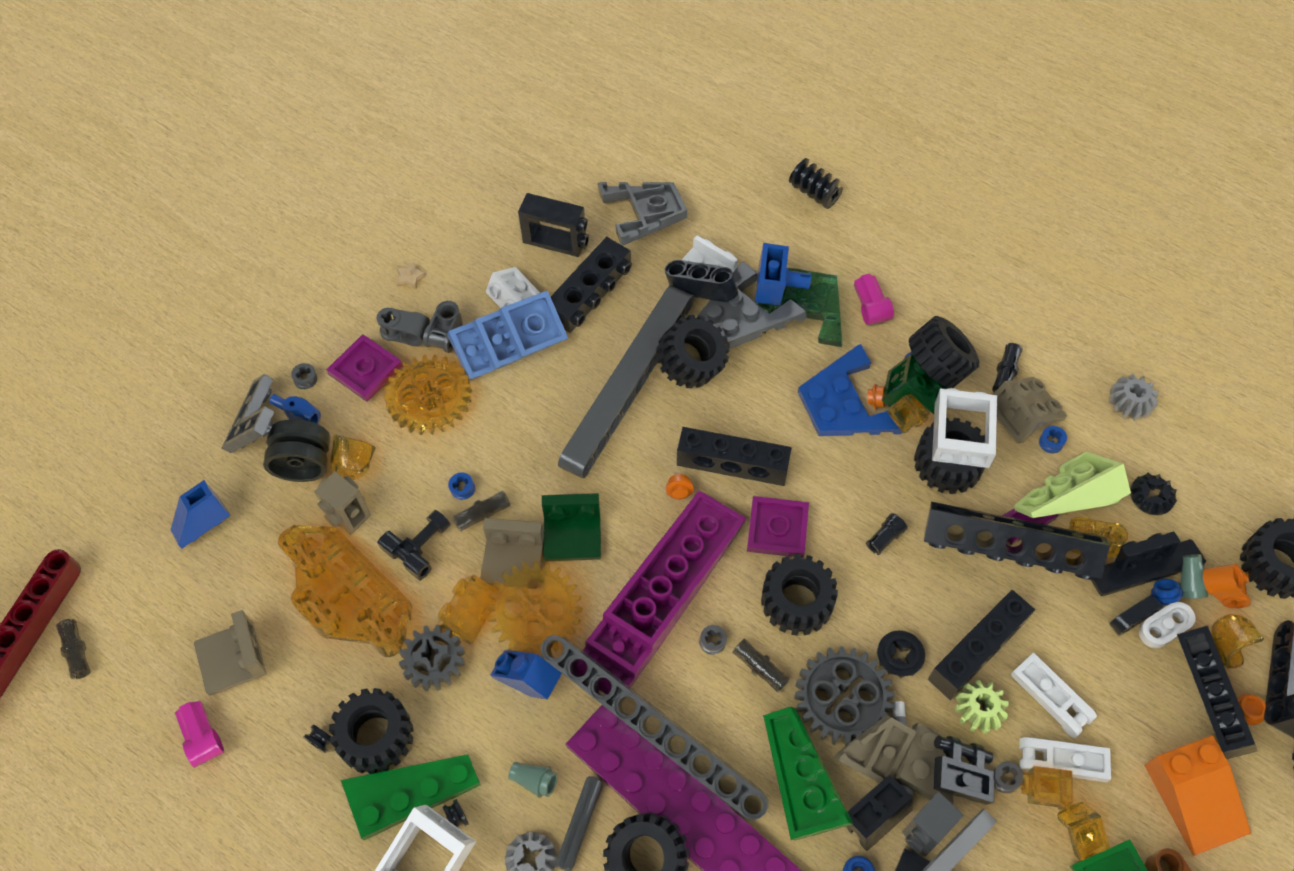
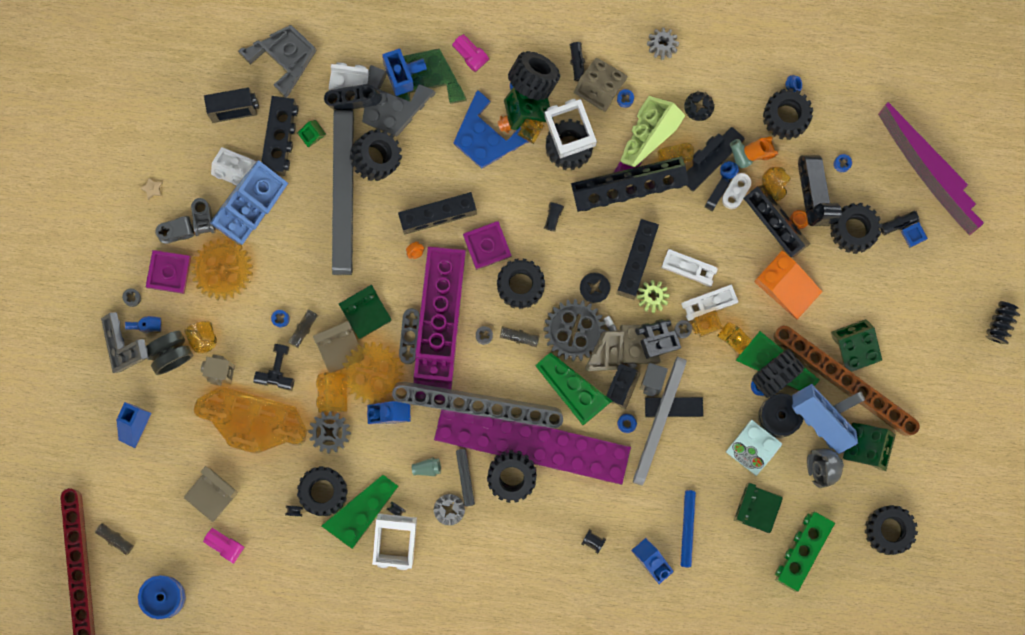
camera: 30 degrees left, 20 degrees up
(67, 758) = (151, 602): none -> blue wheel
(617, 569) = (403, 350): none -> dark grey beam
(630, 301) = (311, 133): none -> green slope

